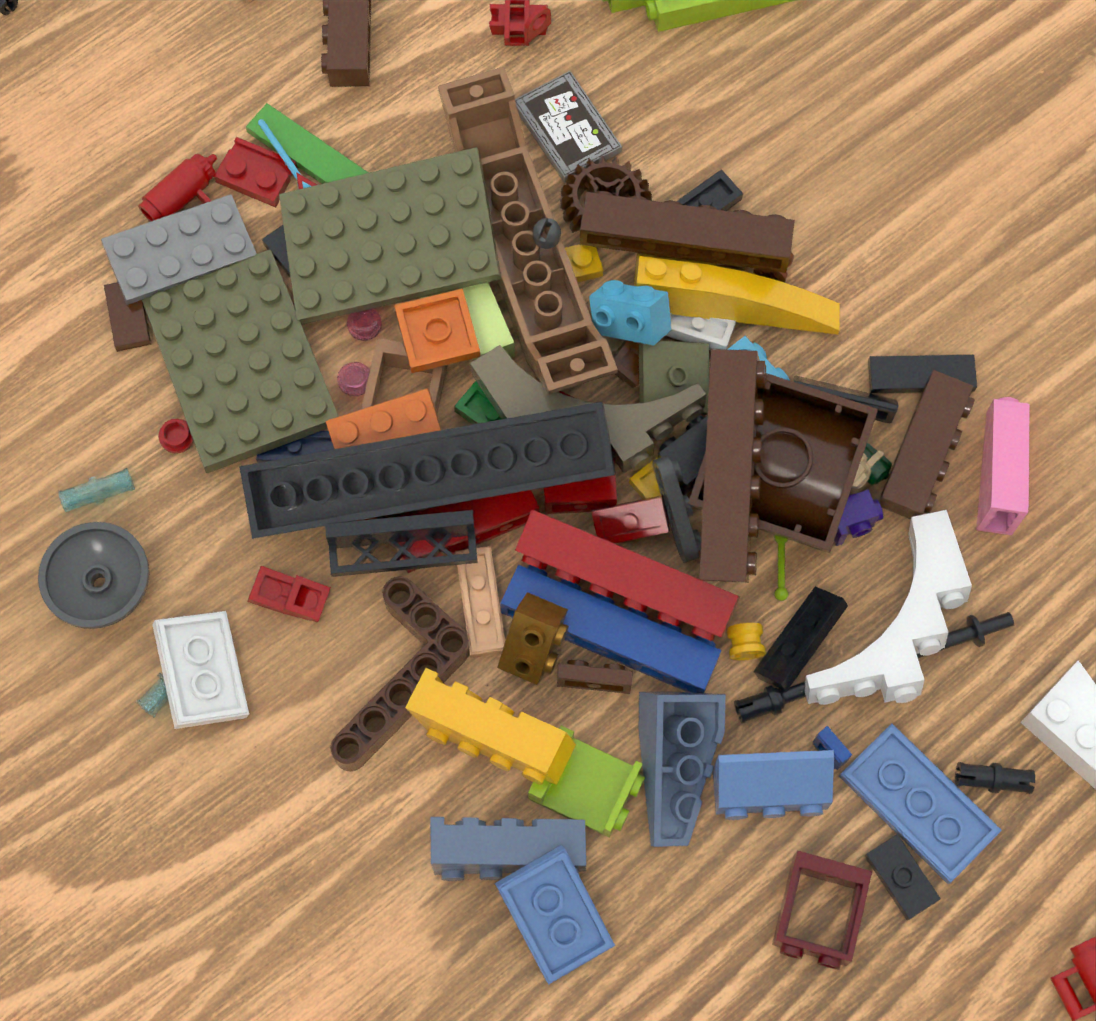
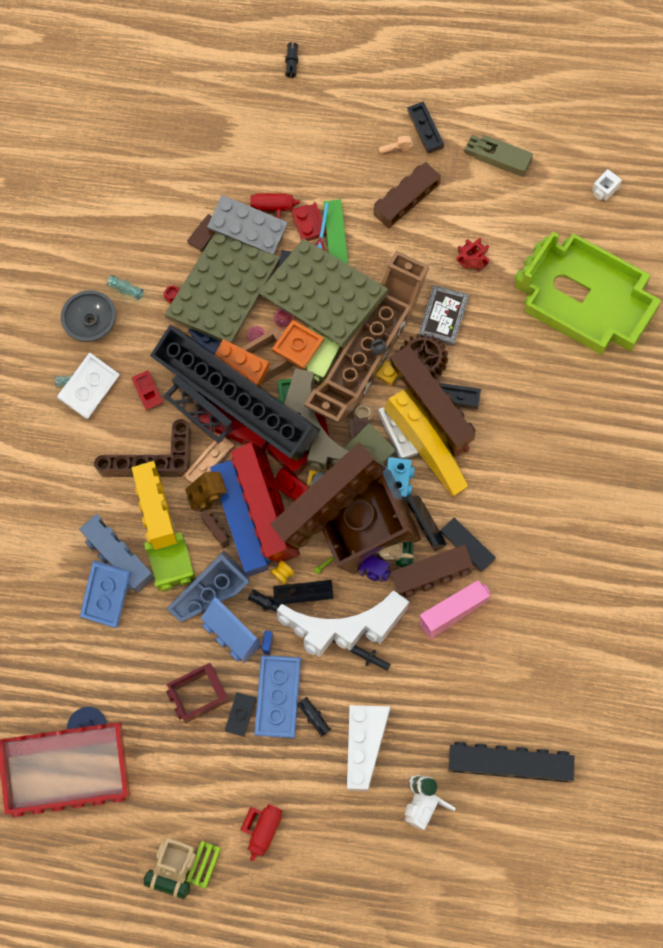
camera: 55 degrees right, 0 degrees up
(631, 312) = (375, 407): medium azure brick -> none

